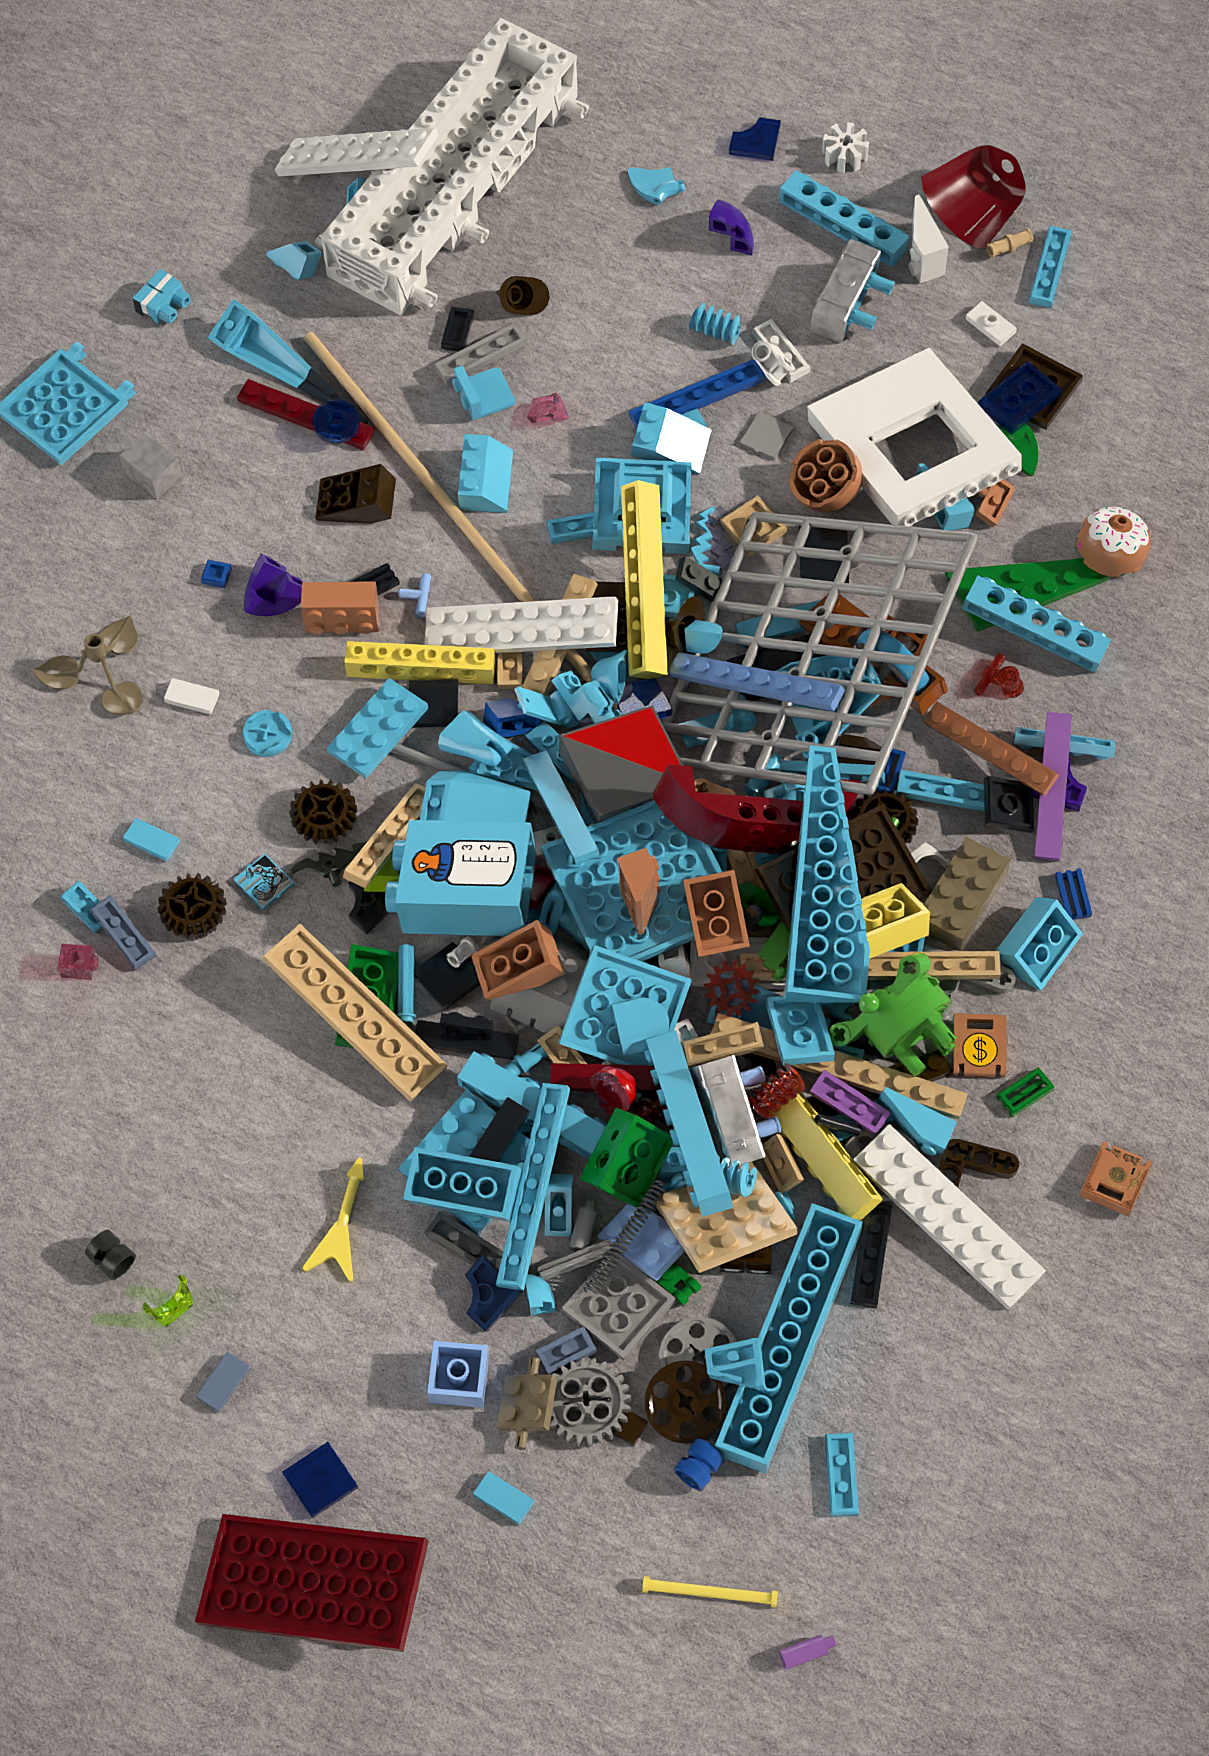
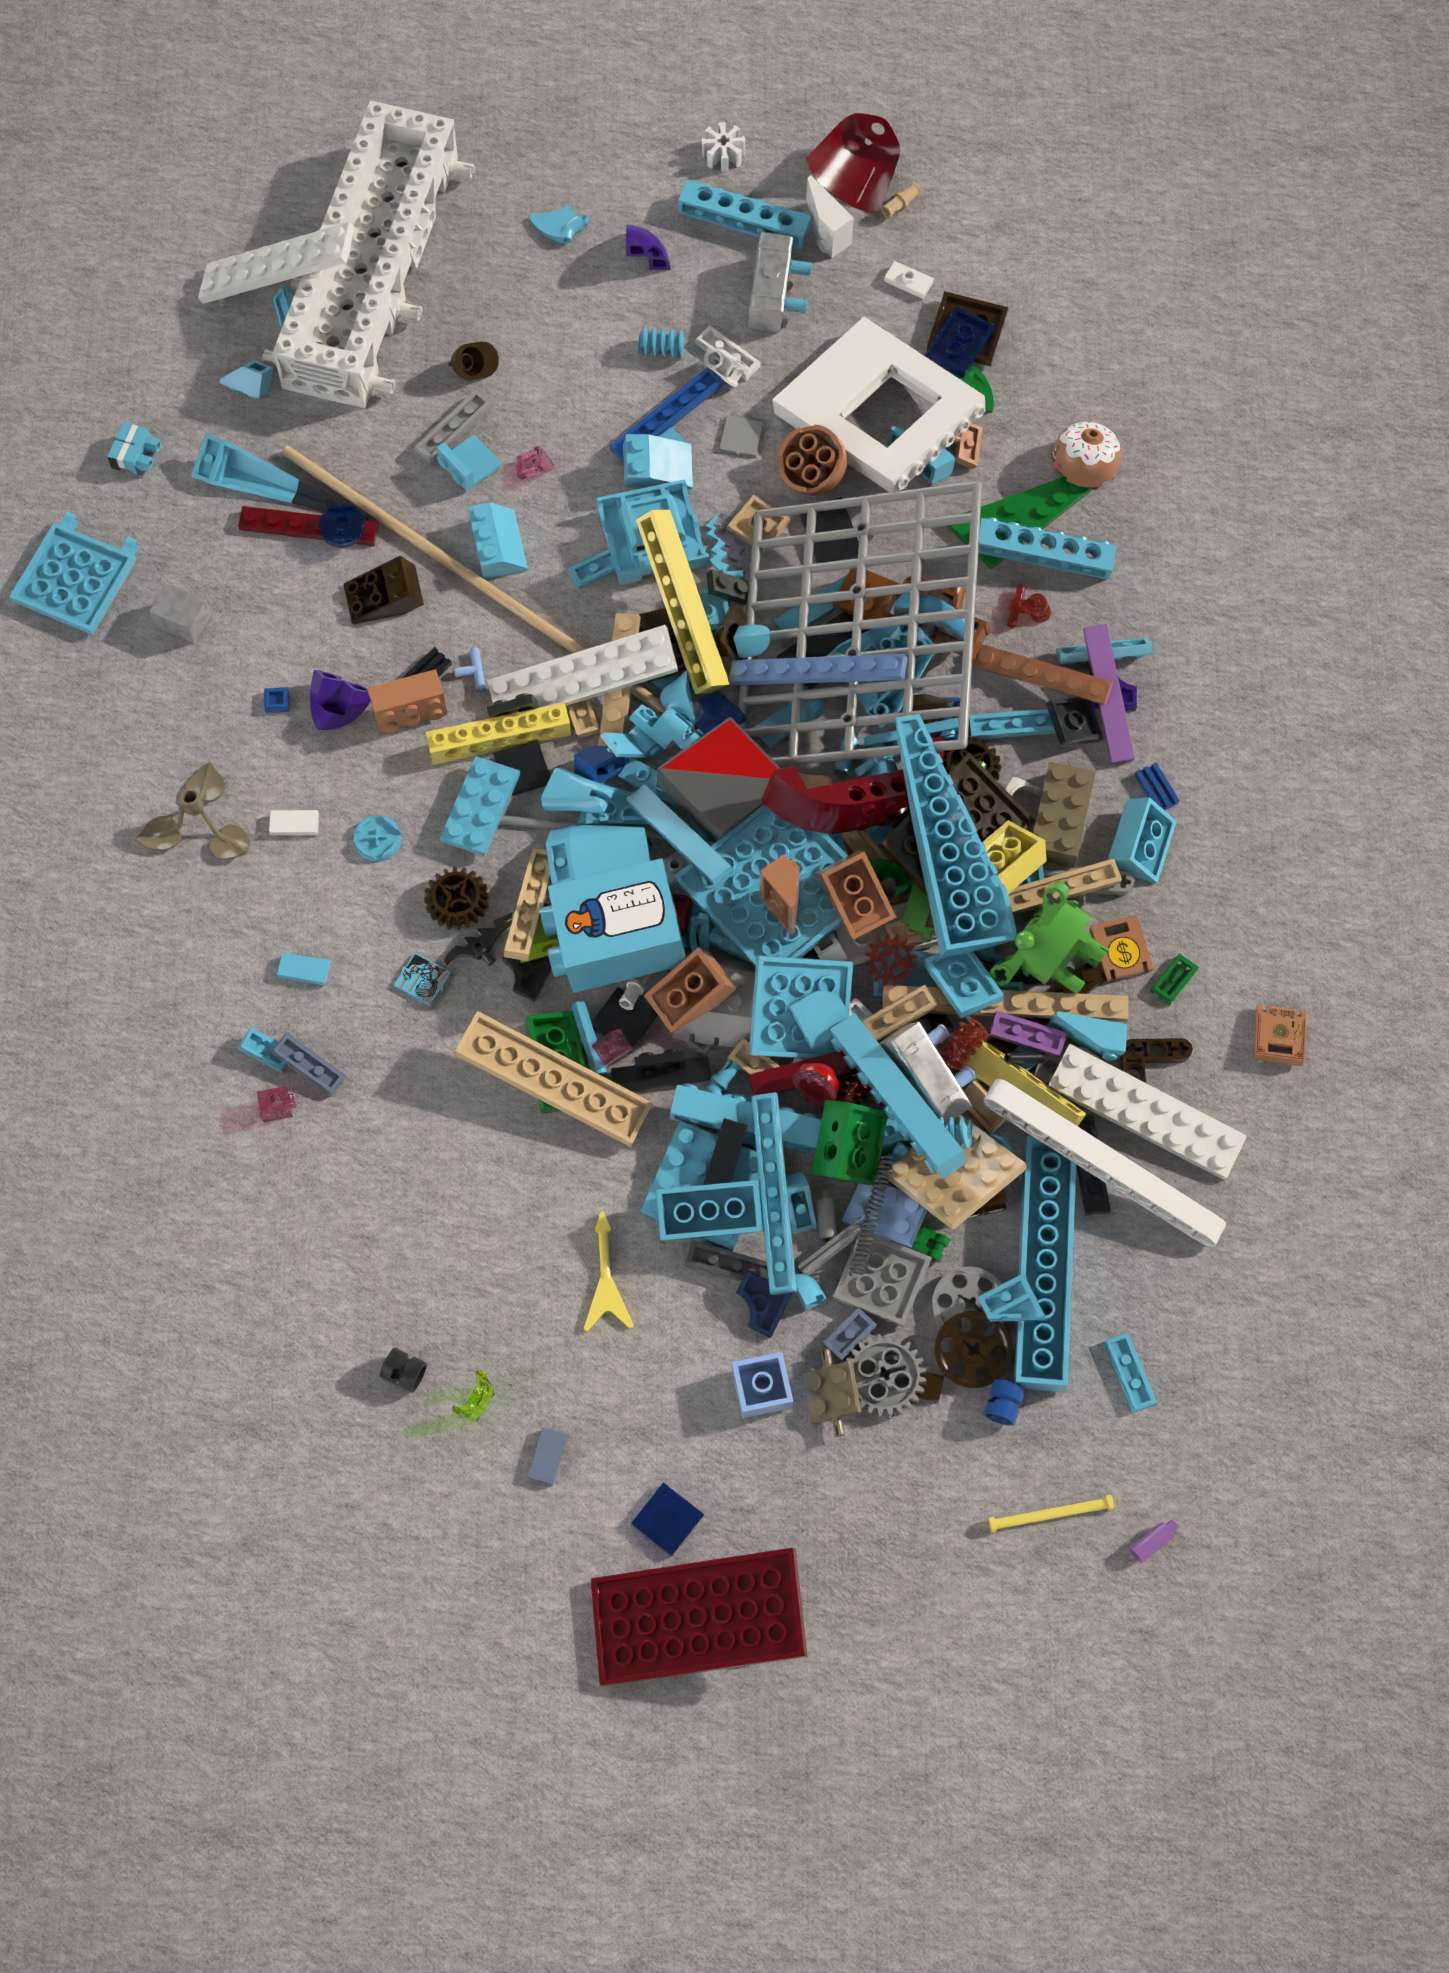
camera: 20 degrees left, 5 degrees up
(183, 895) = (375, 1020): dark brown gear -> none
(425, 998) = (612, 1047): none -> clear pink brick
(450, 637) = (521, 703): none -> pearl dark grey plate
(457, 329) = (423, 408): black tile -> none
(503, 1498) = (839, 1485): medium azure tile -> none
(758, 141) = (639, 160): clear blue tile -> none
(883, 1253) = (1104, 1163): none -> white beam
(1050, 266) = (944, 213): medium azure tile -> none

